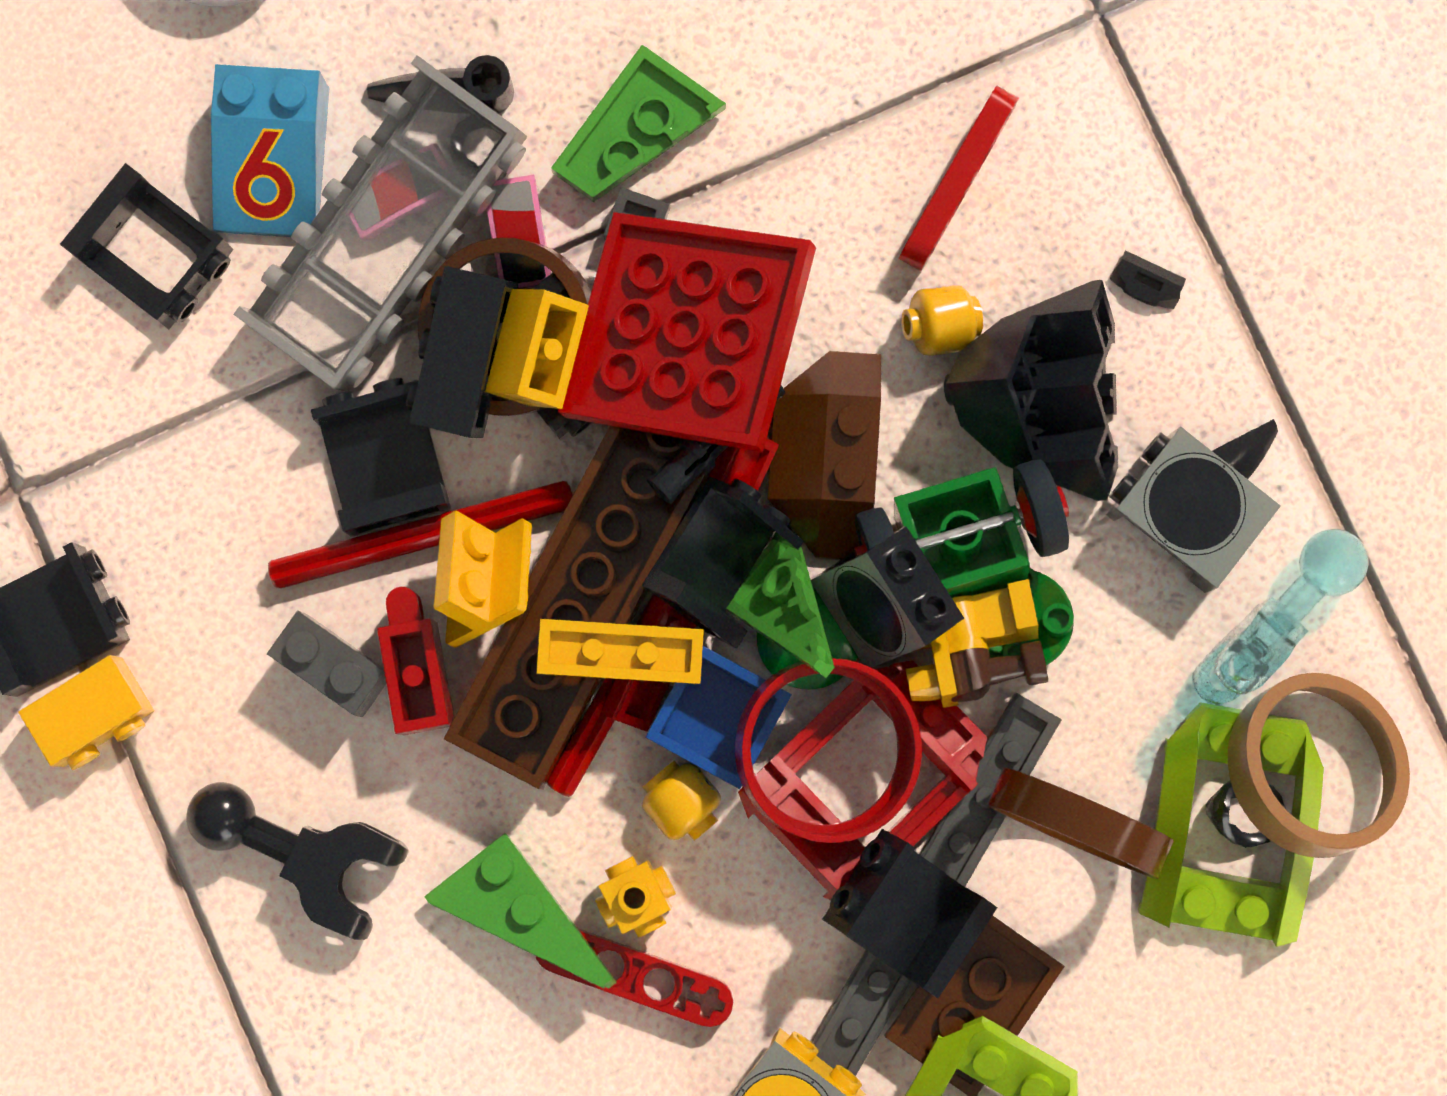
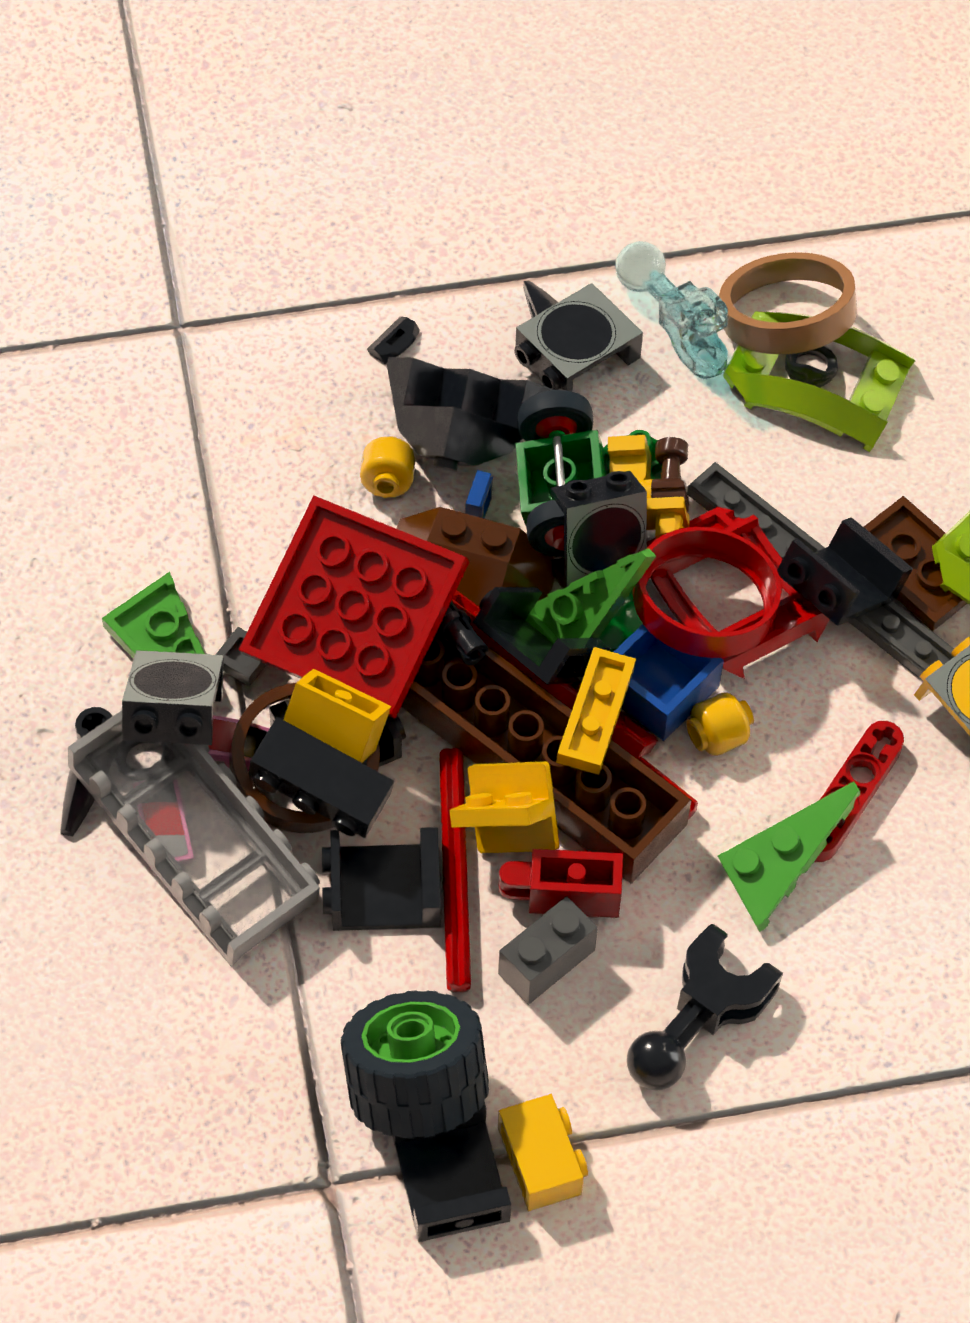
camera: 80 degrees left, 25 degrees down
(107, 216) = (167, 979): black panel -> none
(129, 549) = (415, 1064): none -> black wheel
(267, 148) = (94, 910): dark azure slope -> none
(520, 151) = (172, 697): none -> black panel
(655, 887) = (790, 767): yellow brick -> none
(924, 441) = (479, 495): none -> blue tile
(958, 178) = (280, 434): red beam -> none
(1080, 822) = (780, 466): reddish brown piece -> none

